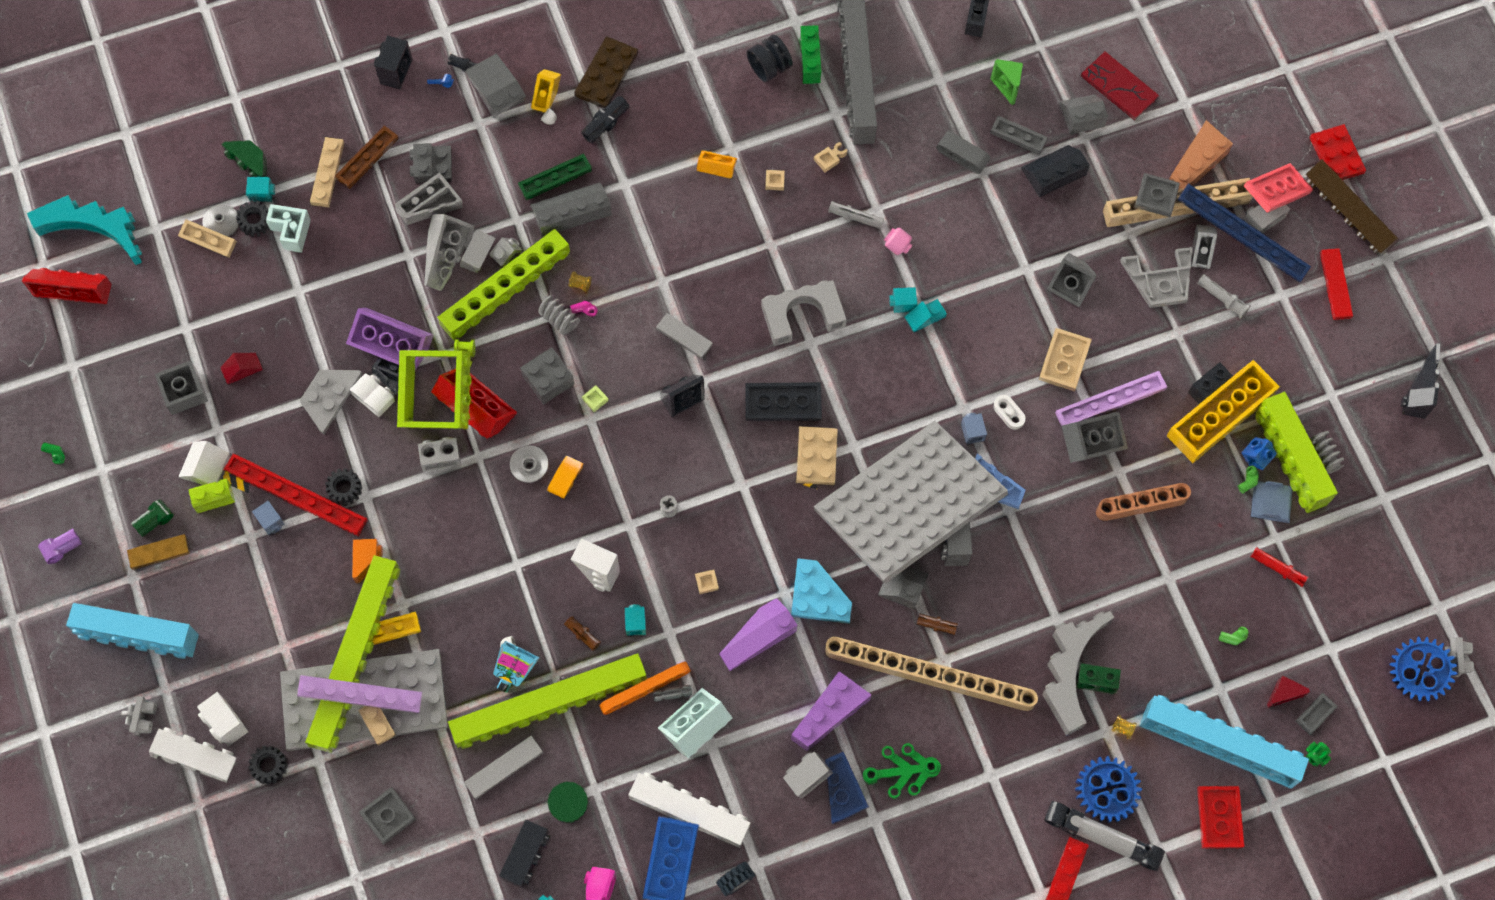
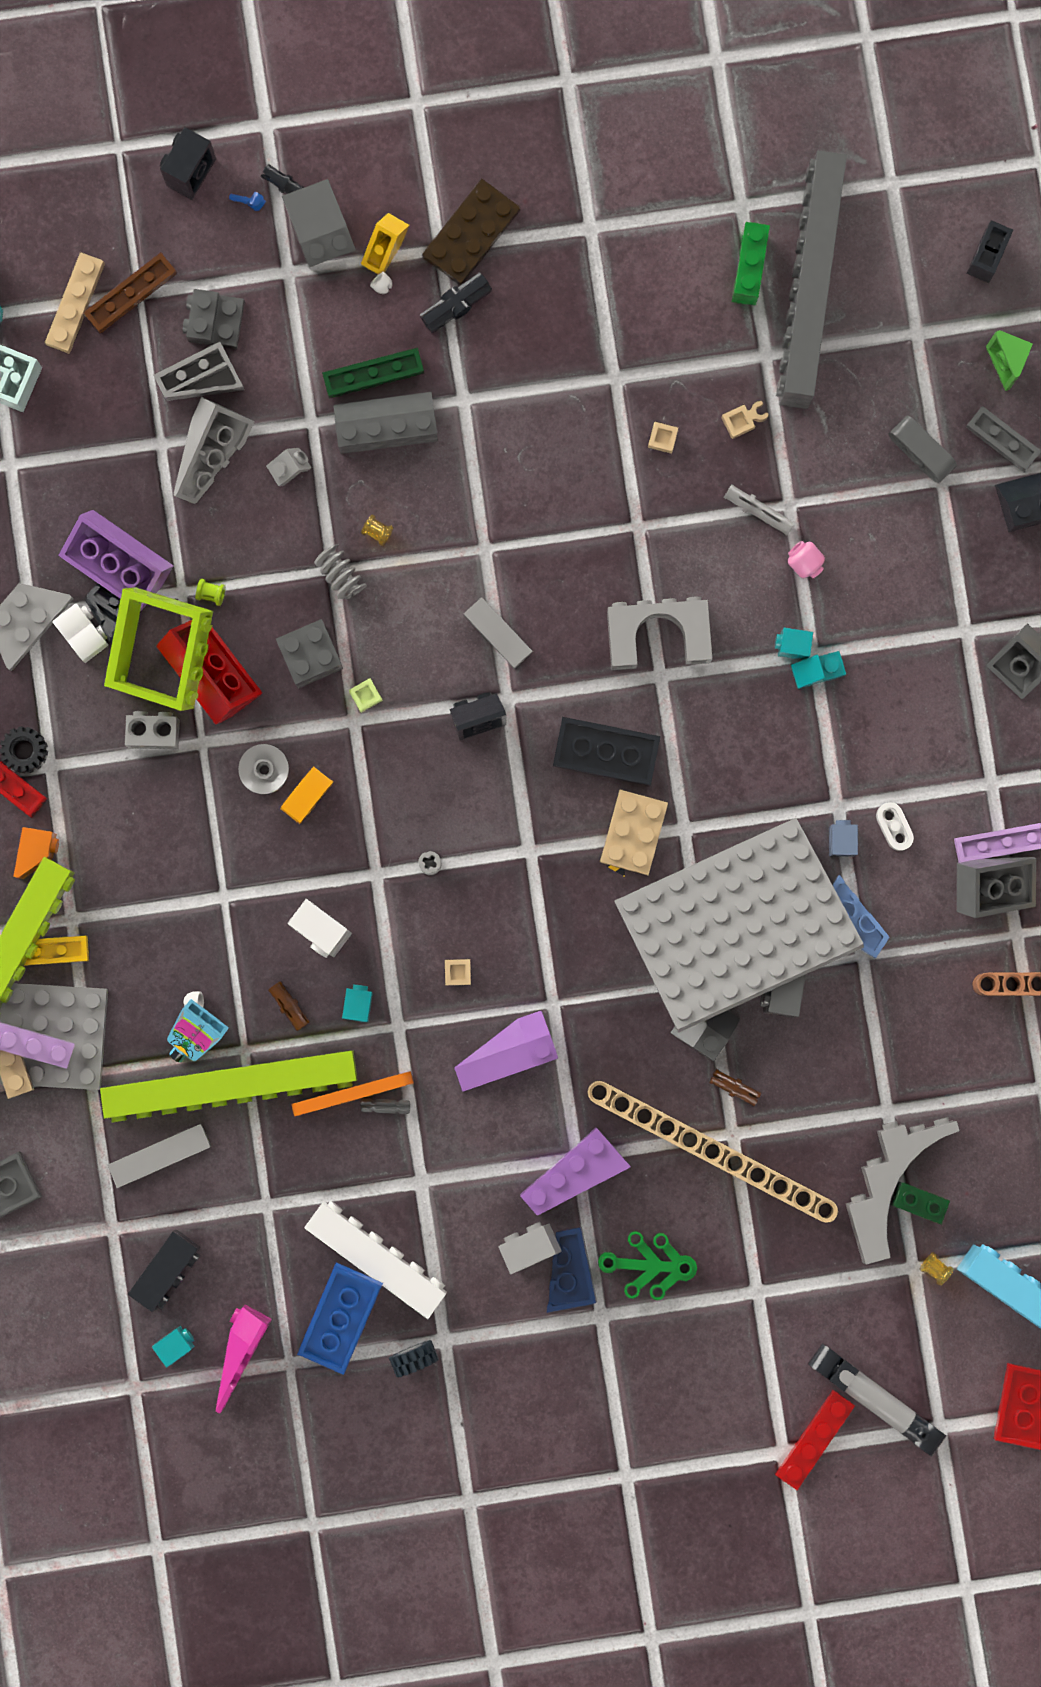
camera: 10 degrees right, 15 degrees up
(477, 251) = (251, 459): light grey hinge -> none
(507, 275) = (284, 501): lime brick -> none
(567, 802) = (229, 1216): dark green tile -> none
(585, 307) = (377, 566): dark pink arm -> none
(695, 722) = (405, 1151): light aqua slope -> none
(716, 164) = (591, 397): light orange slope -> none
(769, 58) = (697, 259): black wheel -> none
(818, 595) = (594, 1017): medium azure plate -> none
(1065, 359) = (985, 769): tan plate -> none
(1102, 772) = (896, 1367): blue gear -> none

